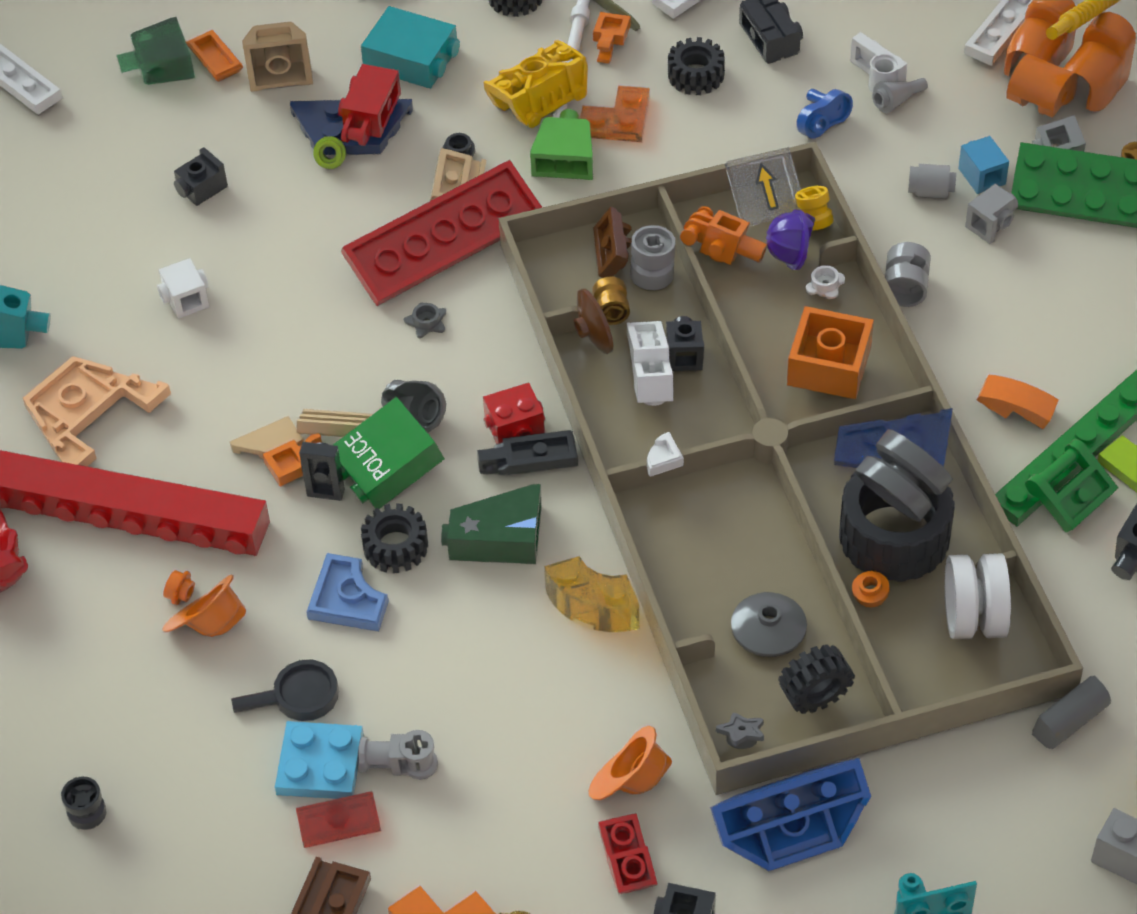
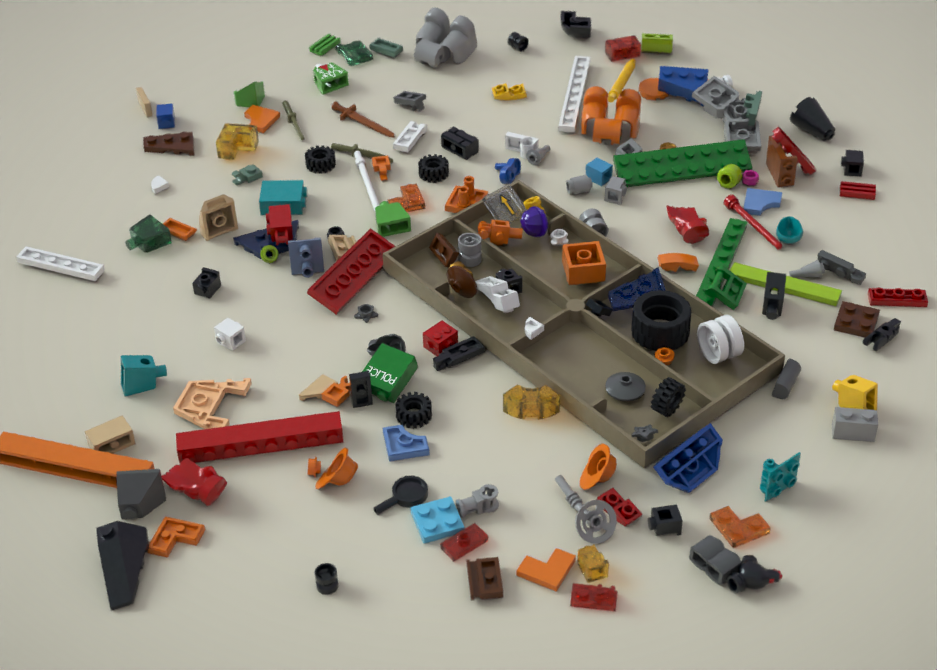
camera: 25 degrees left, 10 degrees down
(329, 422) = (341, 371): tan tile -> none
(383, 178) = (306, 256): none -> sand blue piece
(496, 528) = (464, 389): dark green slope -> none
(540, 83) = (362, 193): yellow piece -> none
(562, 857) = (591, 517): none -> light grey dish
(714, 143) = (464, 196): none -> orange plate
(810, 450) = (599, 308): none -> black plate
(903, 475) = (663, 292): dark grey wheel -> none
(1083, 325) = (688, 223): none -> red hair

